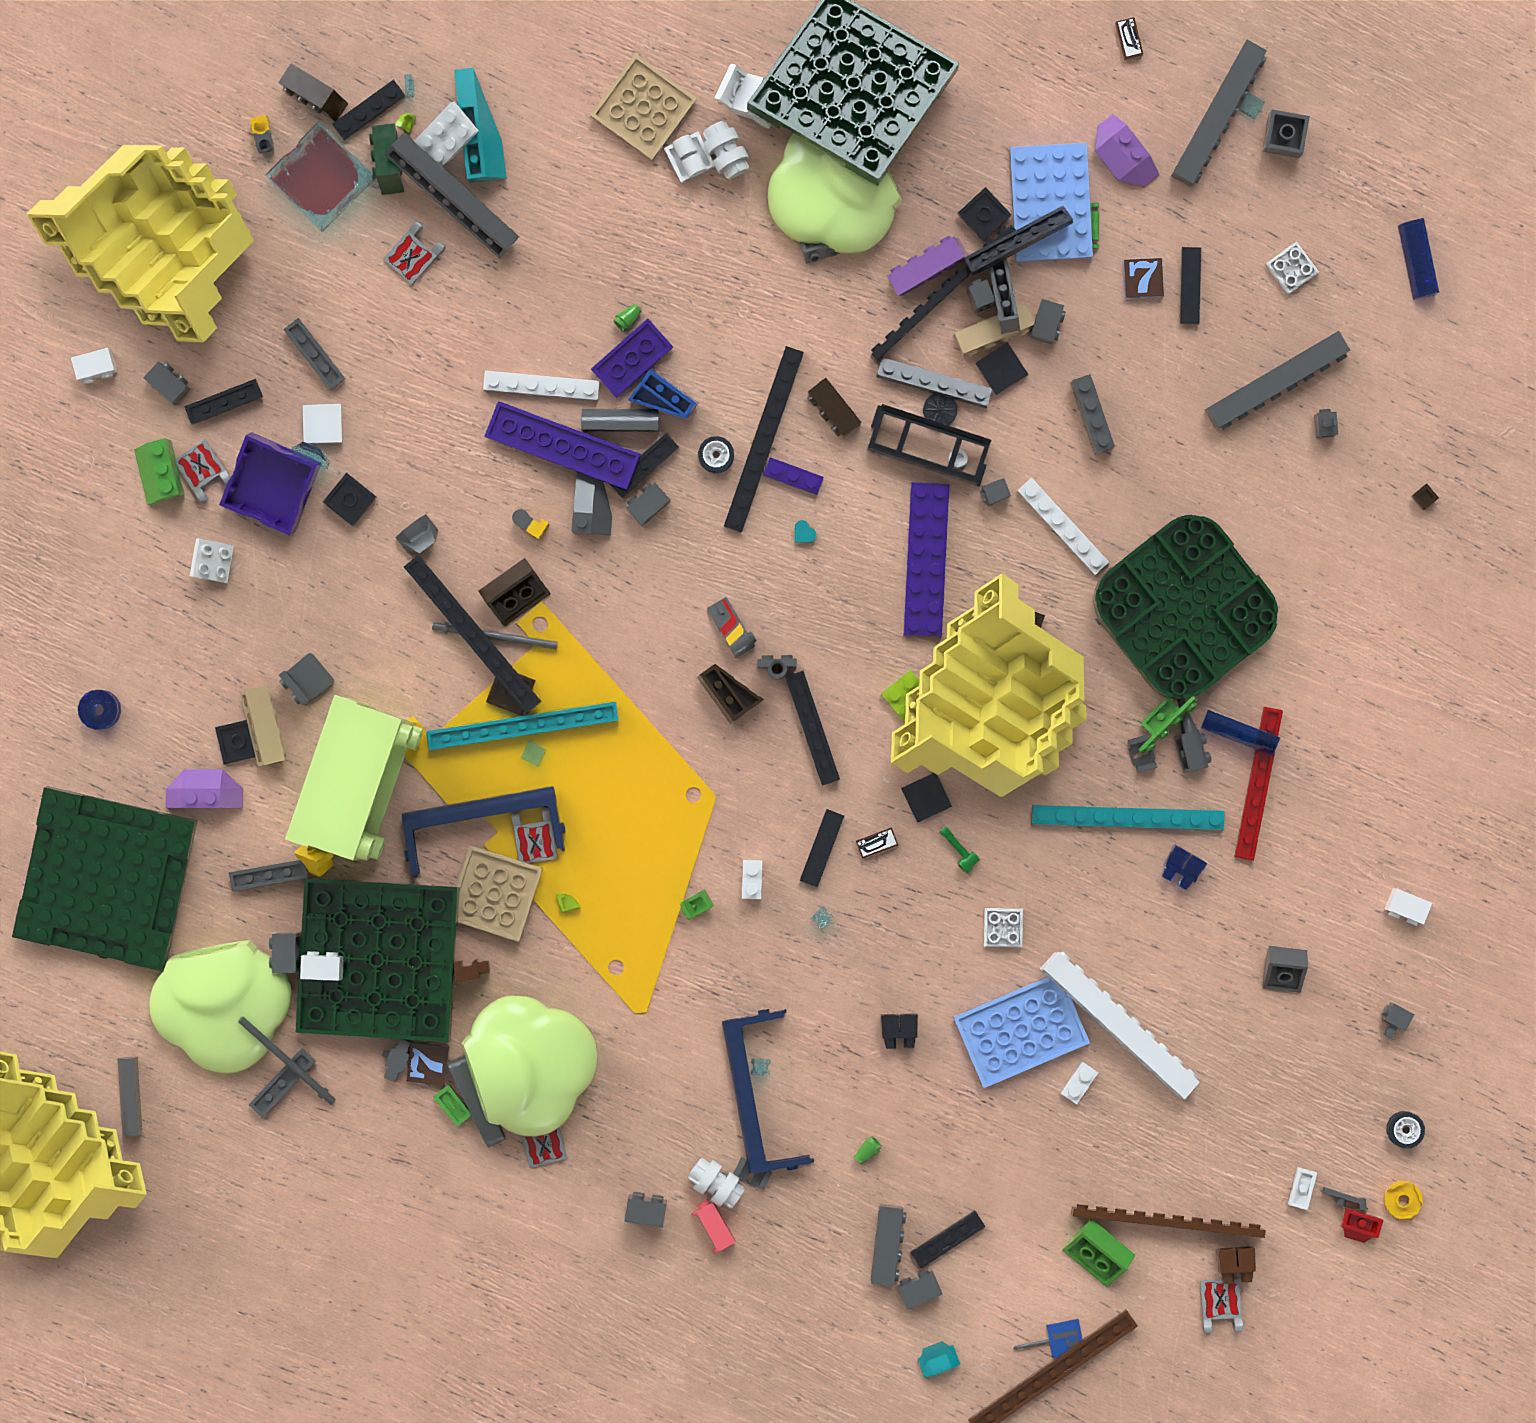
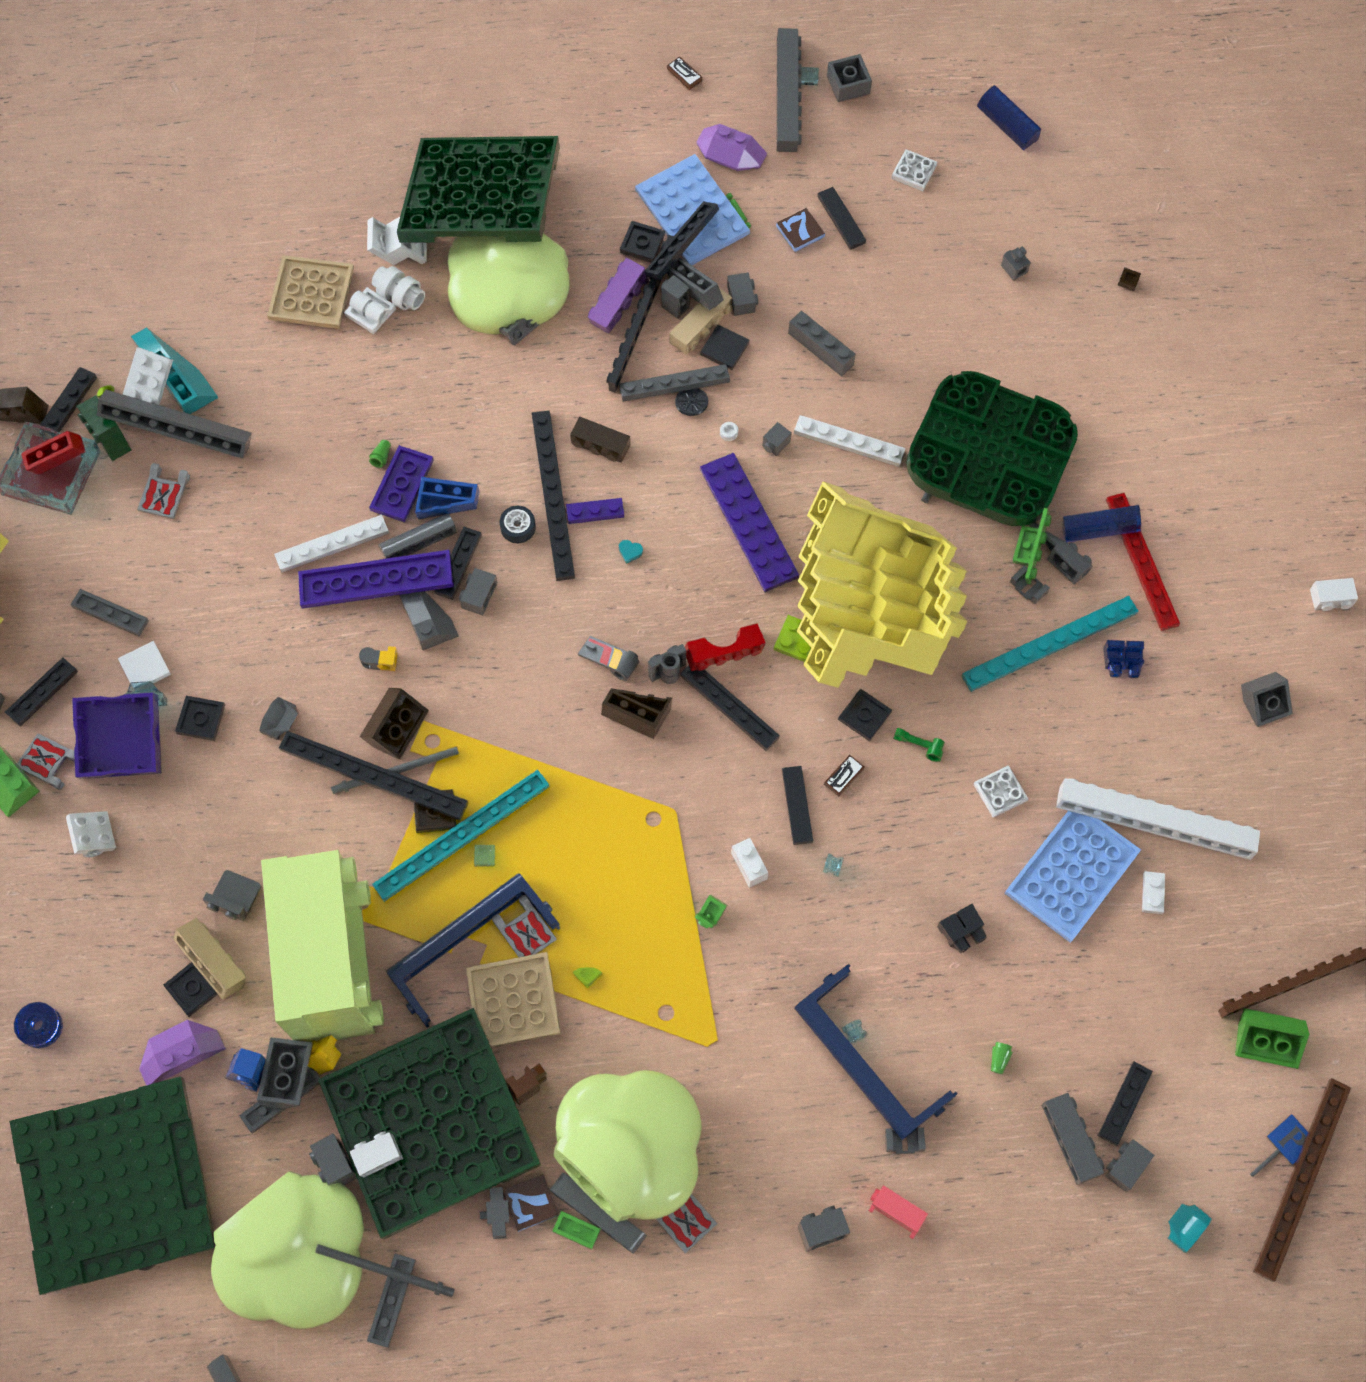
camera: 25 degrees left, 20 degrees down
(250, 840) = (246, 1069): none -> blue wedge
(279, 863) = (284, 1073): none -> dark grey slope
(330, 169) = (53, 452): none -> red brick
(409, 85) = (96, 364): clear light blue tile -> none
(709, 1178) = (882, 1166): white piece -> none
(812, 671) = (702, 654): none -> red arch
(936, 426) = (703, 445): black piece -> none
(1277, 380) = (955, 250): dark grey brick -> none

